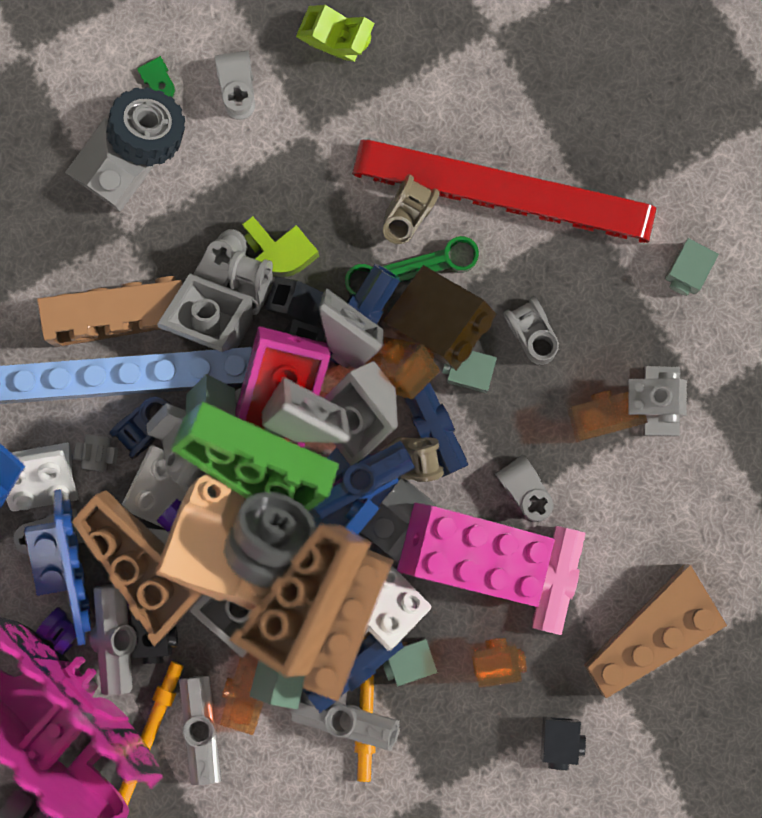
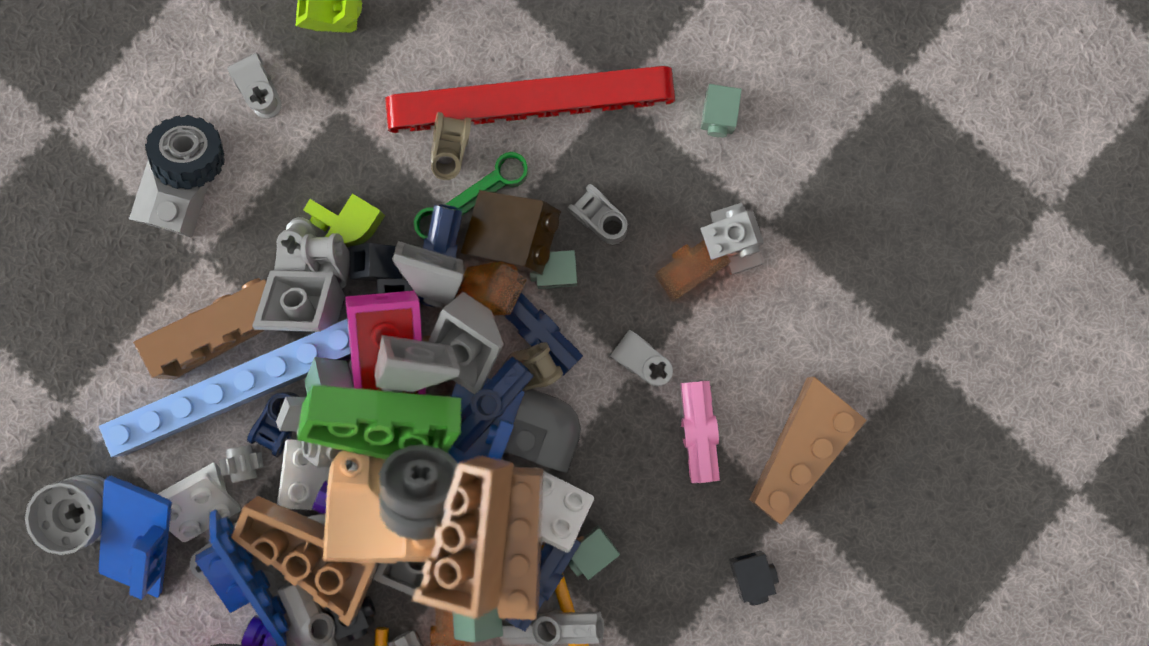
camera: 20 degrees left, 0 degrees up
(156, 73) = (181, 102): green piece -> none
(475, 554) = (617, 436): dark pink brick -> none
(498, 663) = (672, 527): clear orange brick -> none

